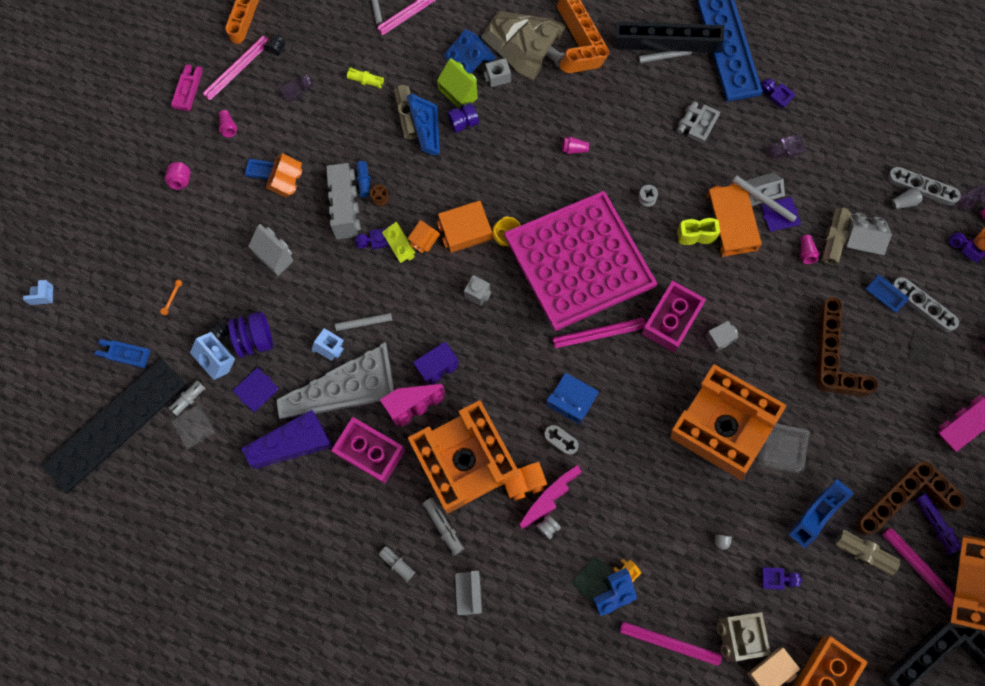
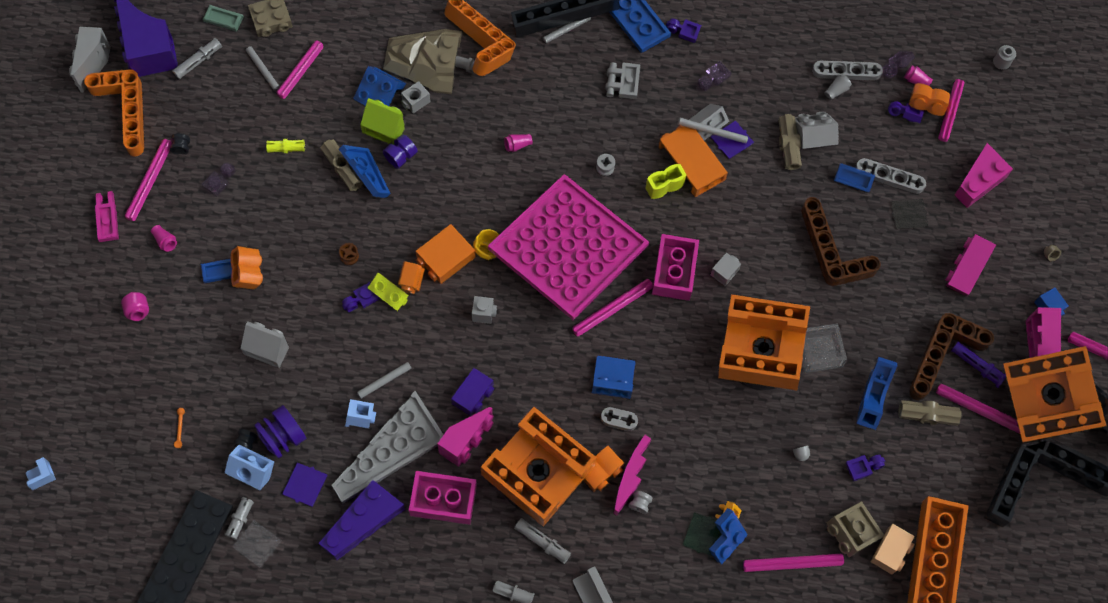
camera: 30 degrees left, 5 degrees down
(124, 353) = (154, 500): blue hinge -> none
(342, 201) = (315, 272): light grey wedge -> none
(363, 179) = (325, 244): blue axle -> none
(808, 251) = (770, 163): dark pink cone -> none

